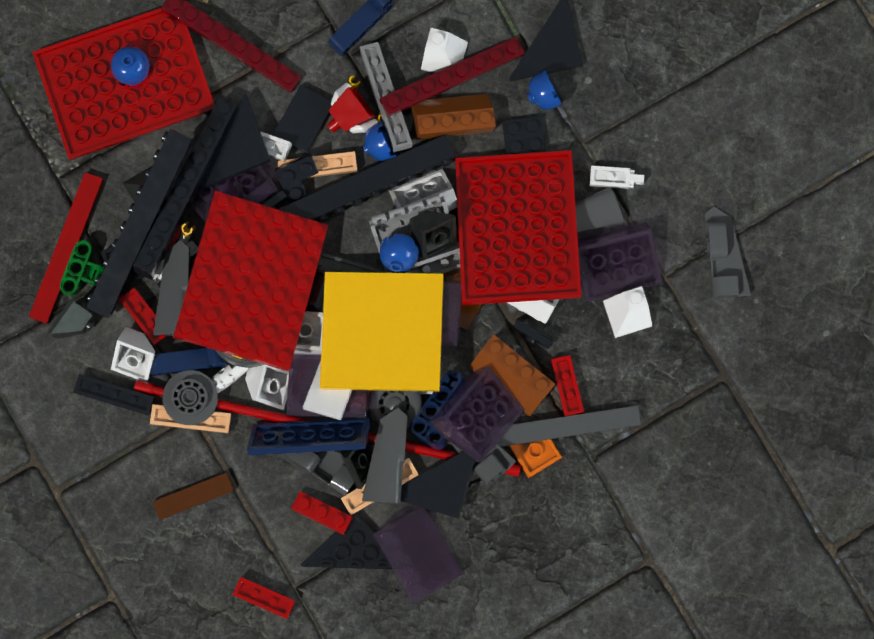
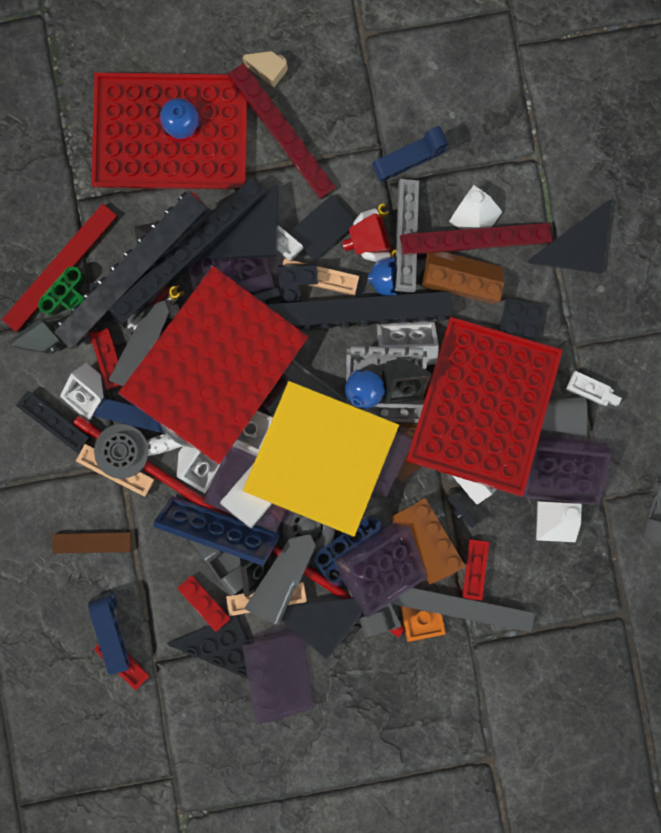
camera: 20 degrees right, 5 degrees up
(243, 572) = (108, 633): none -> dark blue beam
(543, 92) = (556, 284): blue cylinder -> none

